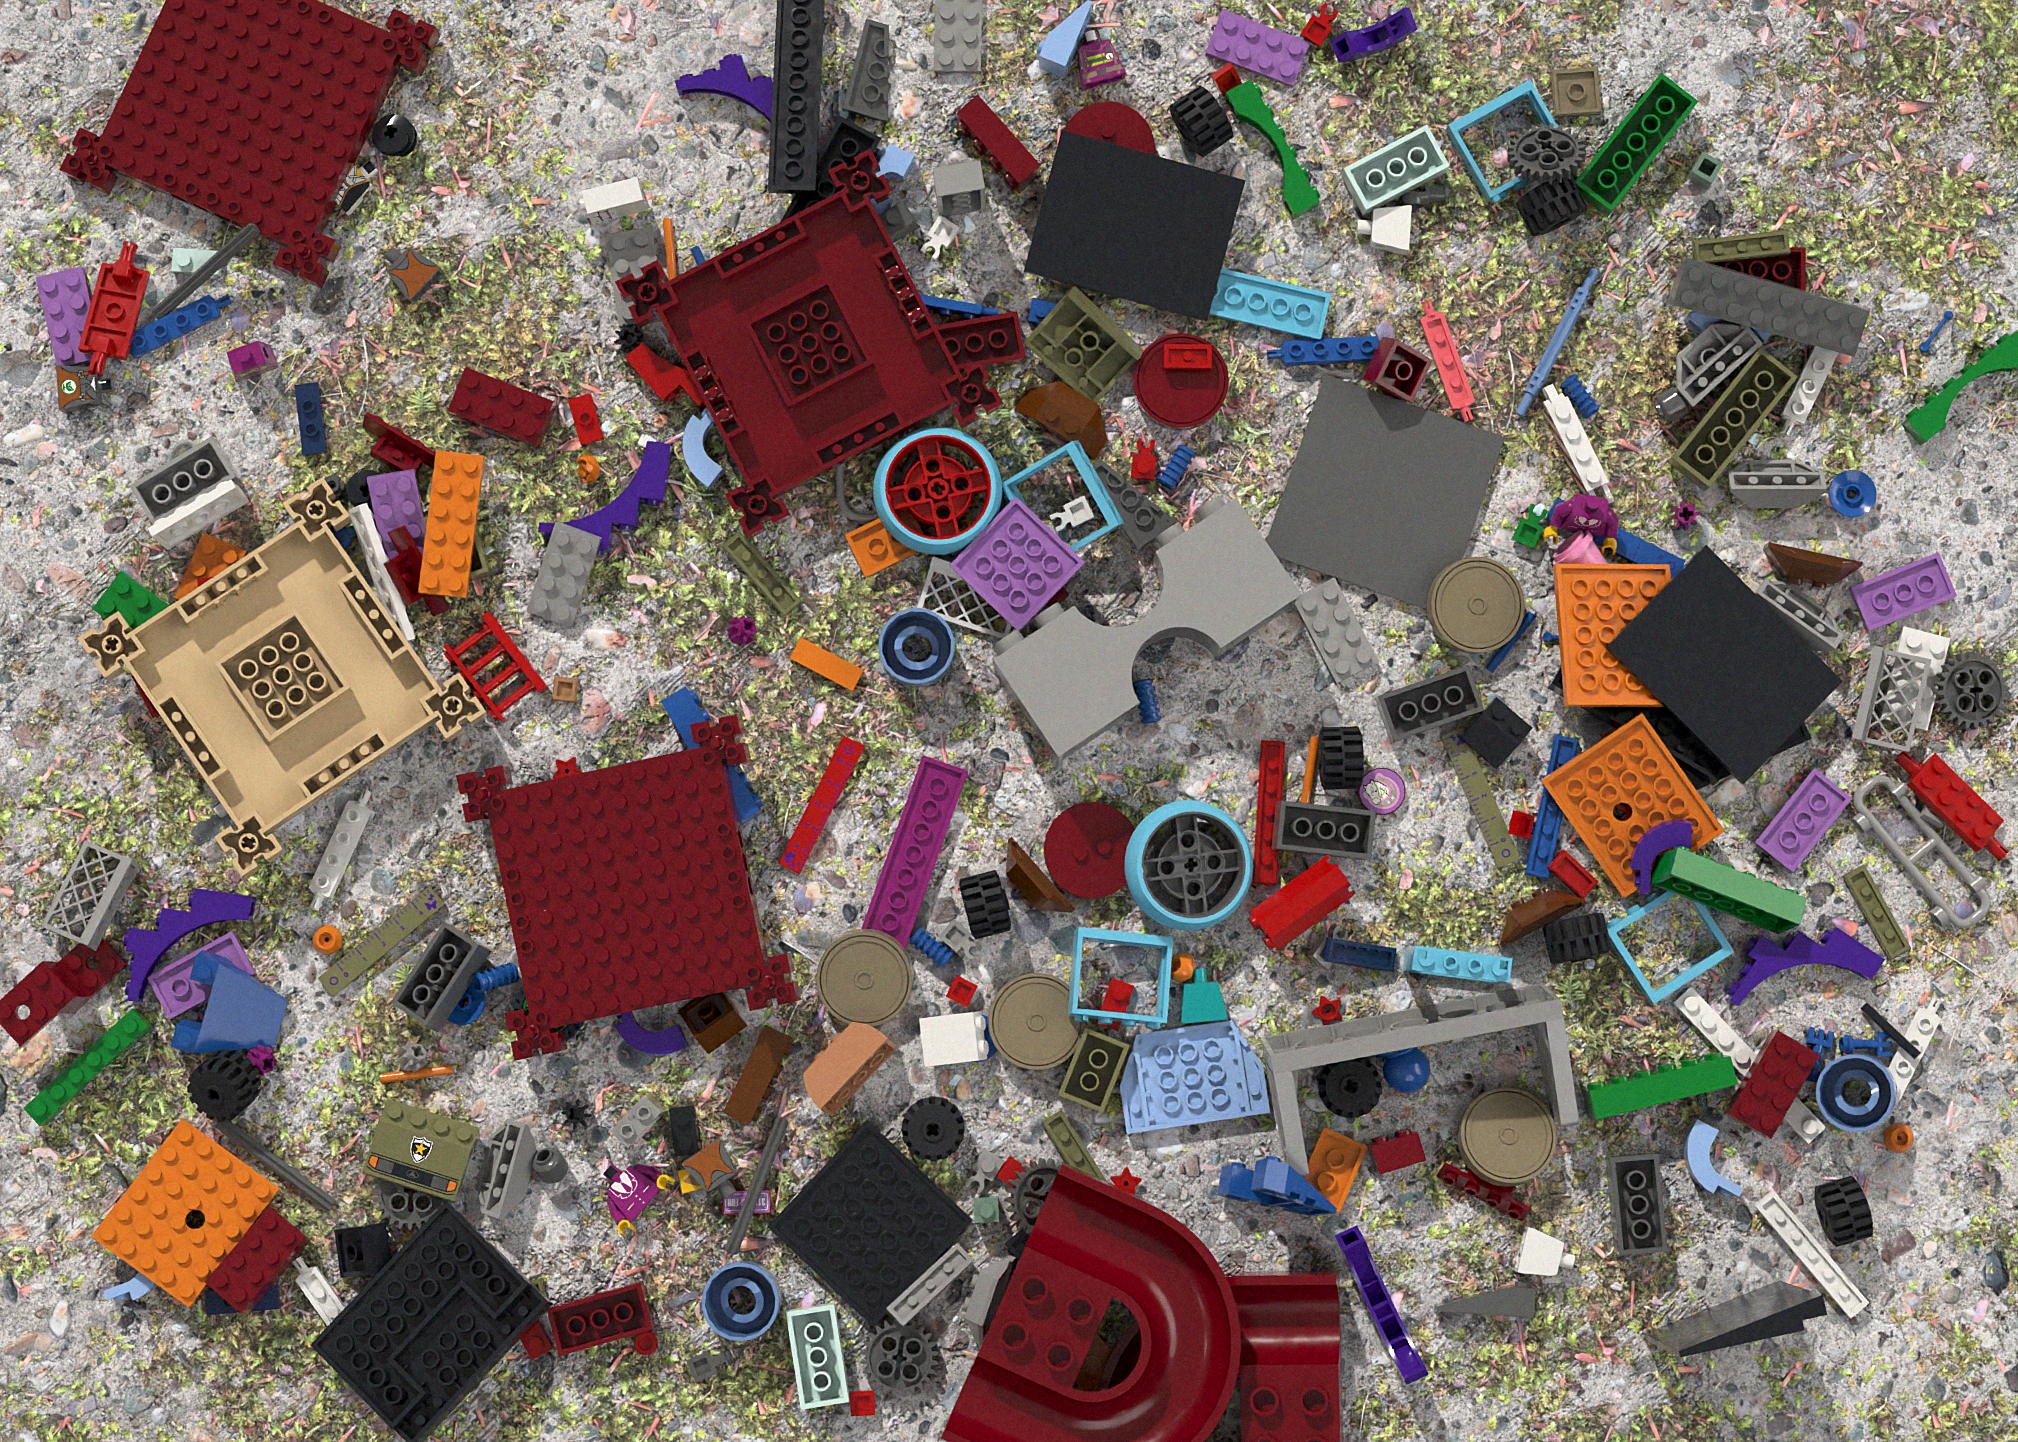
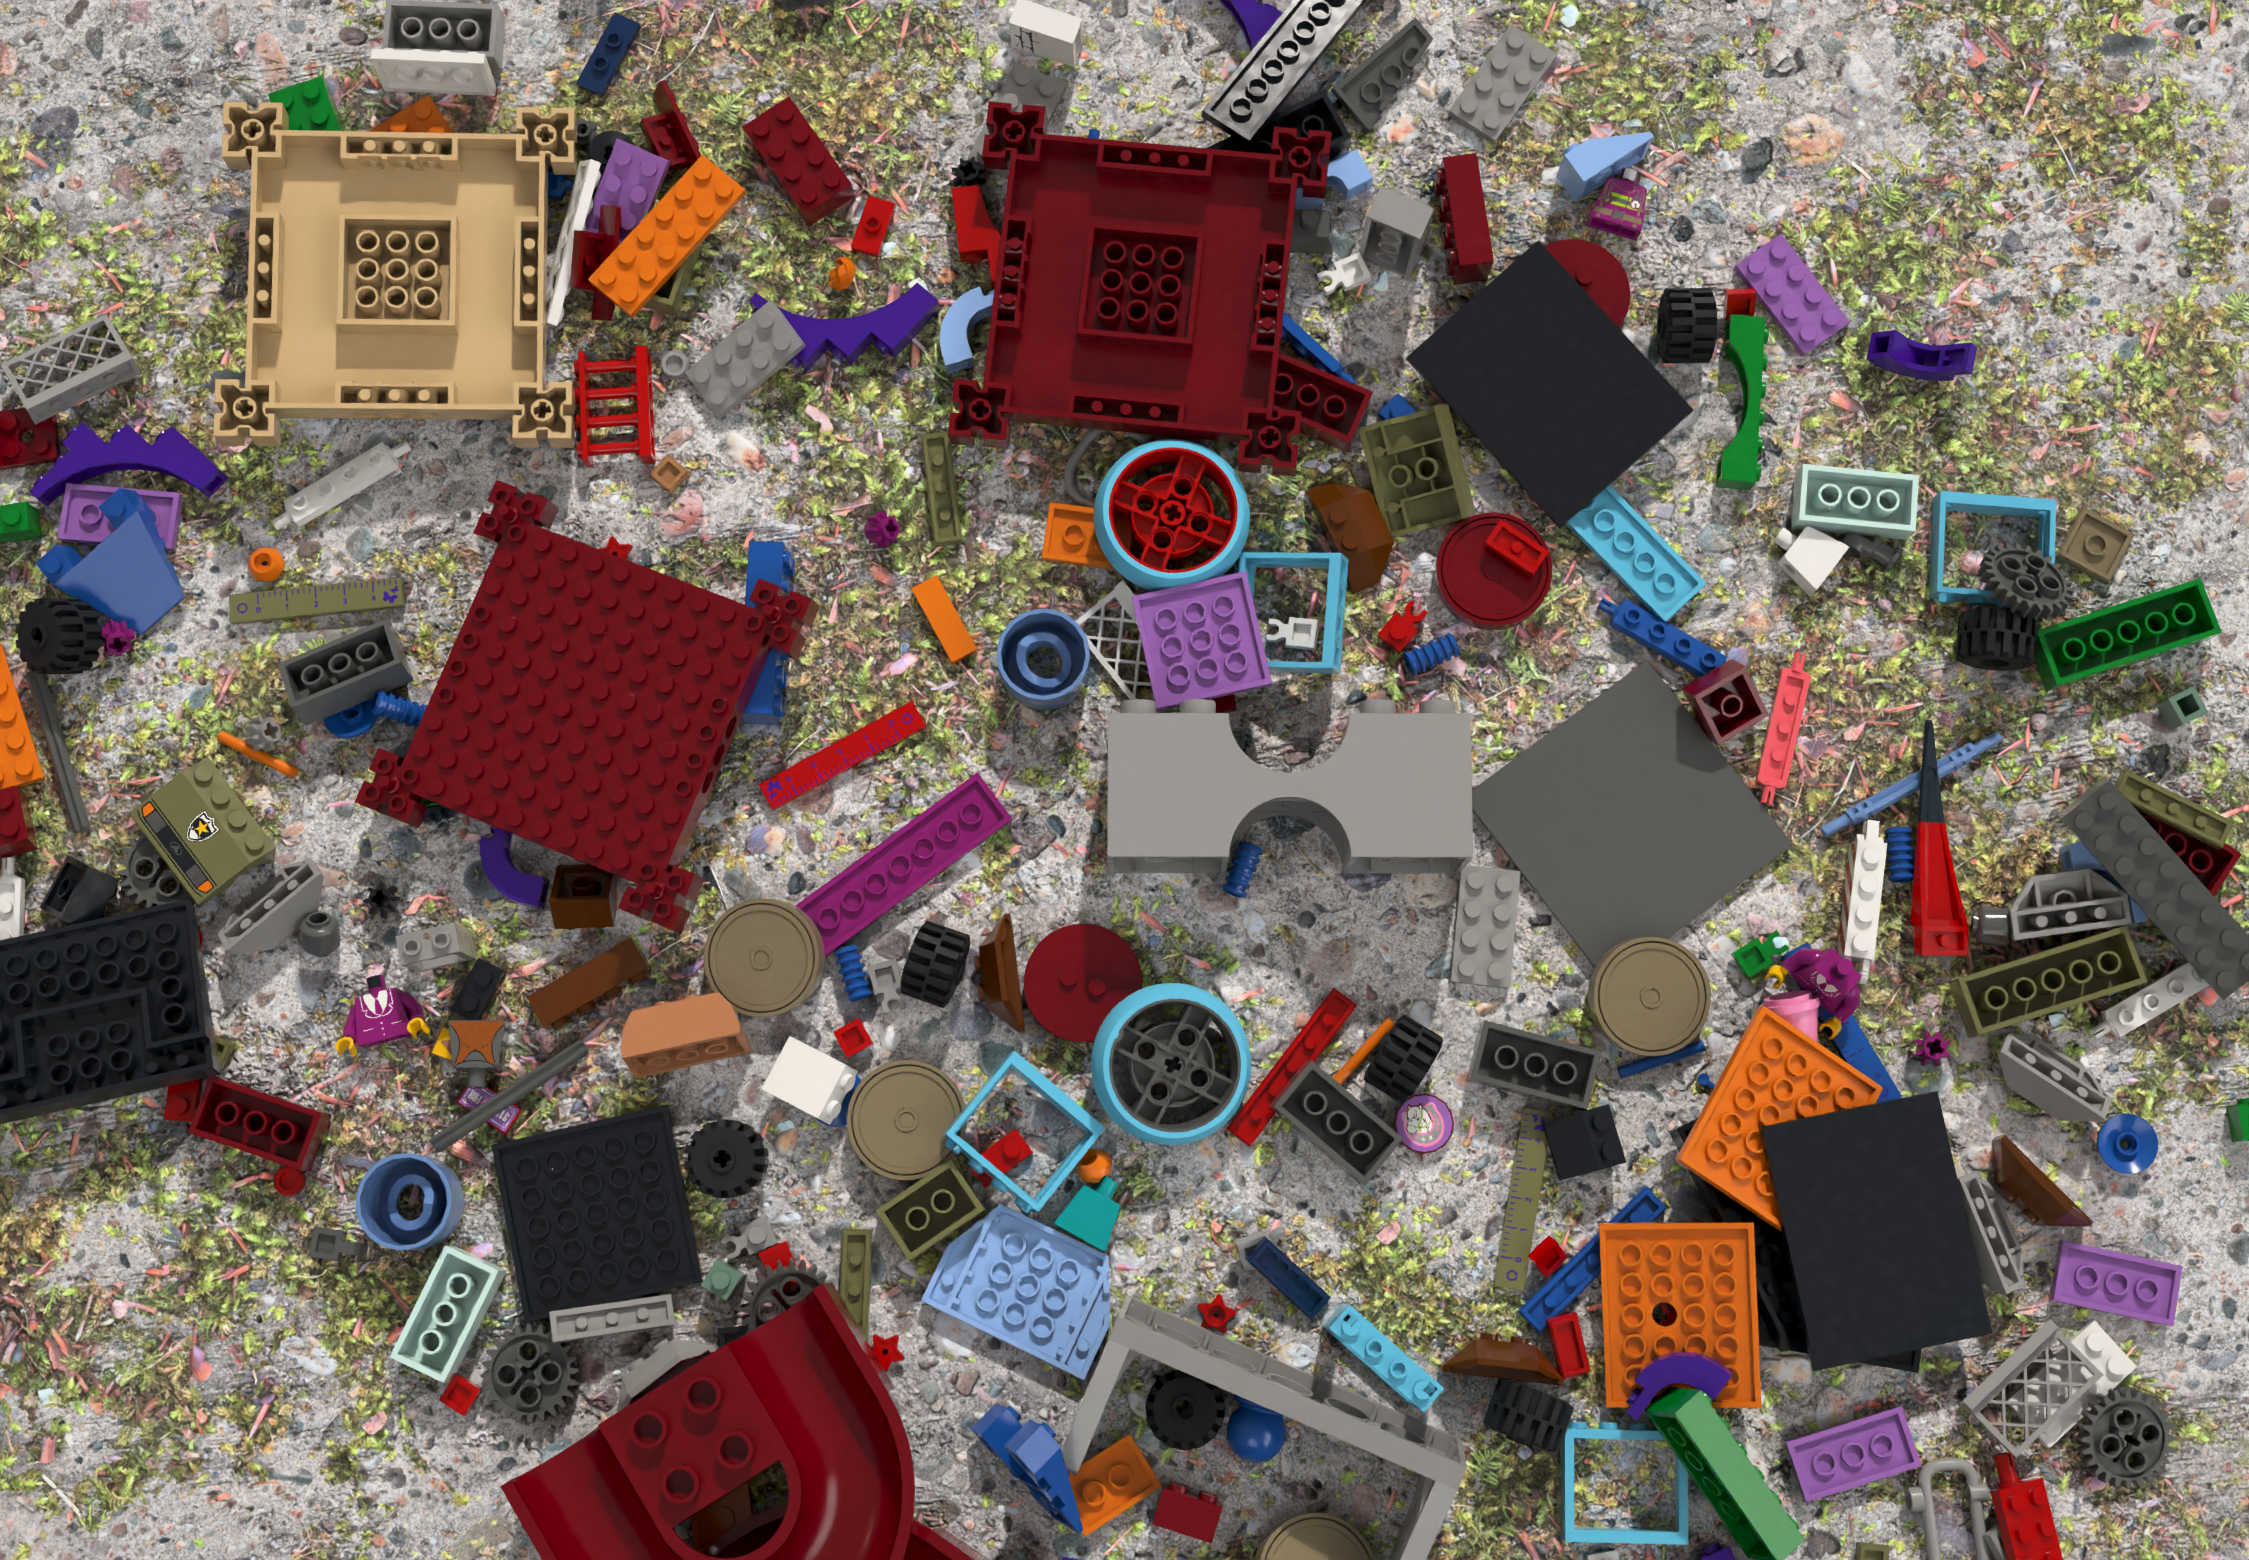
camera: 35 degrees right, 5 degrees down
(515, 610) = (674, 365): none -> light grey tile
(670, 248) = (1073, 110): orange bar -> none
(1141, 516) = (1360, 671): dark grey wing -> none
(1300, 904) = (1261, 1182): red brick -> none
(1318, 28) = (1868, 314): red plate -> none
(1624, 412) = (1936, 899): none -> red plate

